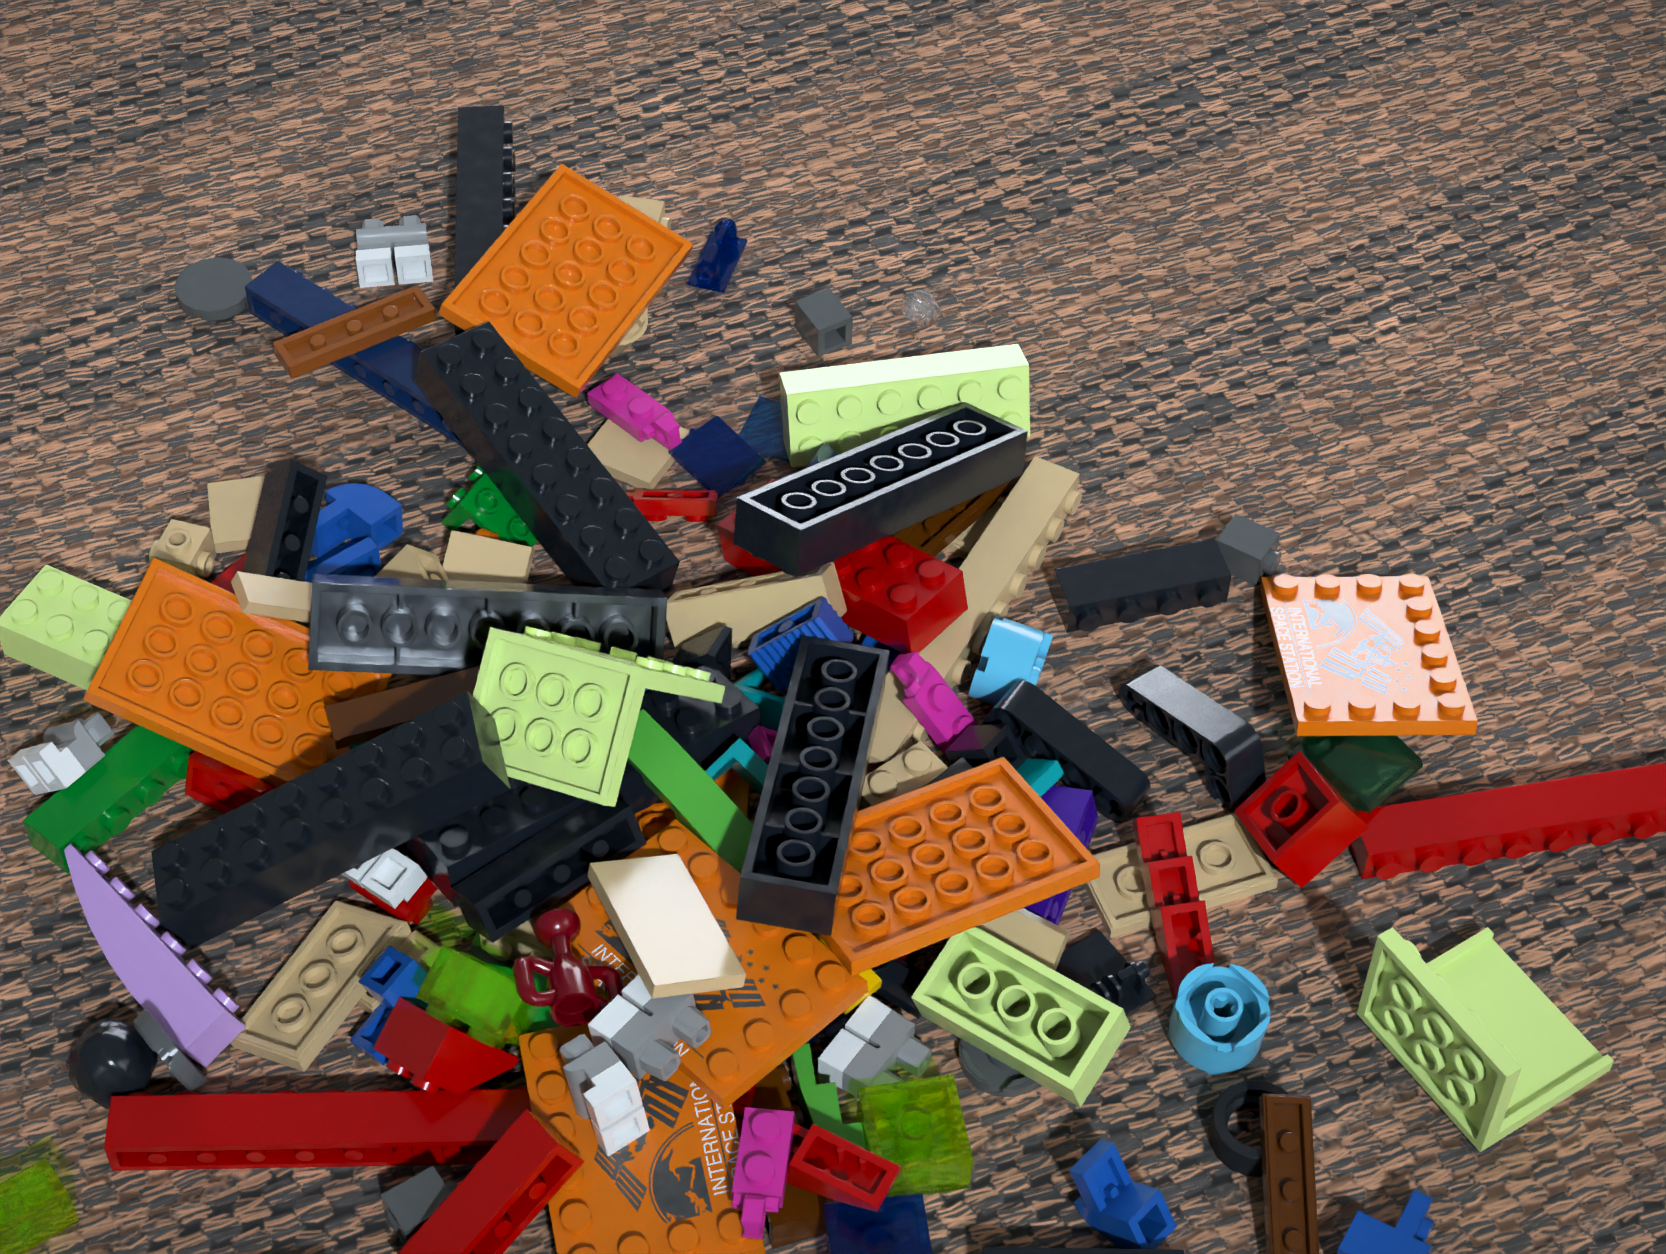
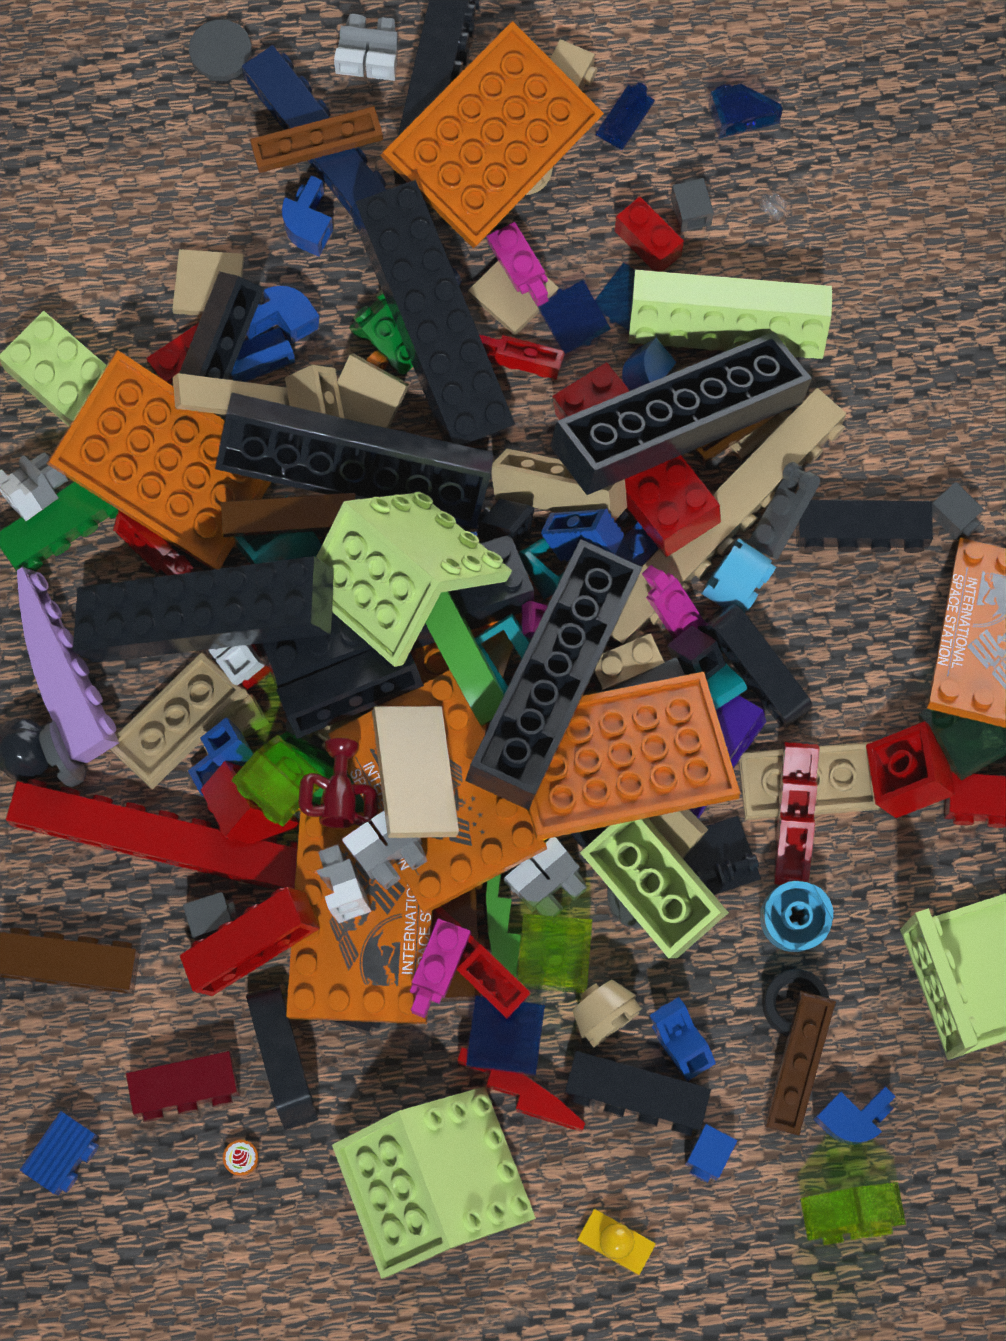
camera: 15 degrees right, 25 degrees up
(186, 548) = (147, 320): tan brick -> none
(359, 425) = (302, 222): none -> blue brick
(773, 348) = (649, 235): none -> red brick
(852, 227) = (741, 109): none -> clear blue slope
(1006, 1189) = (604, 1011): none -> tan cone
(1043, 577) = (784, 510): none -> dark grey plate
(1201, 729) = (867, 679): black beam -> none

